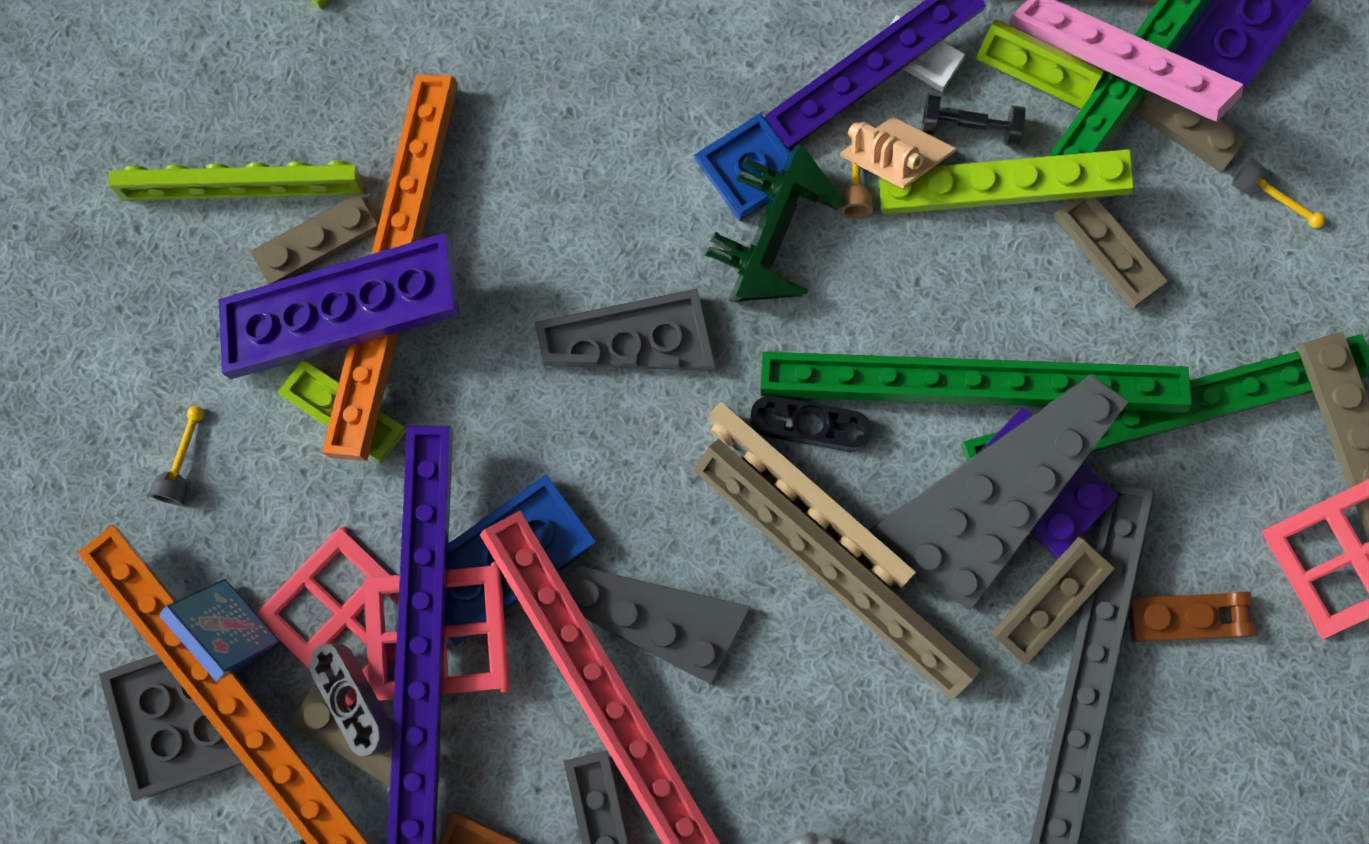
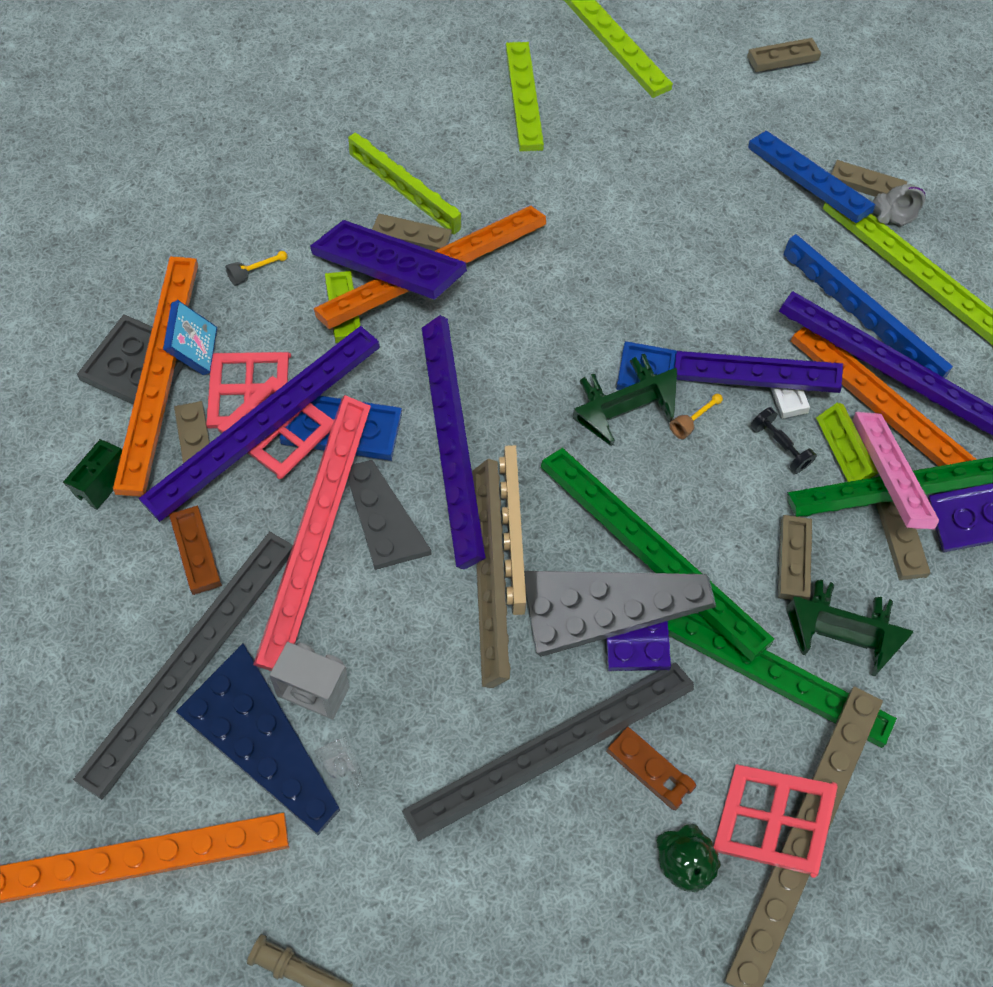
camera: 40 degrees right, 15 degrees down
(367, 709) = (209, 416): dark grey beam -> none
(636, 334) = (510, 390): dark grey wing -> none
(638, 456) = (453, 444): none -> dark purple plate
(824, 412) = (550, 488): black beam -> none
(895, 151) = (725, 418): light nougat hinge -> none
(1012, 182) = (770, 479): lime plate -> none
(1052, 600) = (582, 684): dark tan plate -> none
(1192, 294) = (819, 617): none -> dark green hose
(1254, 178) = (913, 594): hinge -> none
(1315, 674) = (683, 853): none -> dark green hair

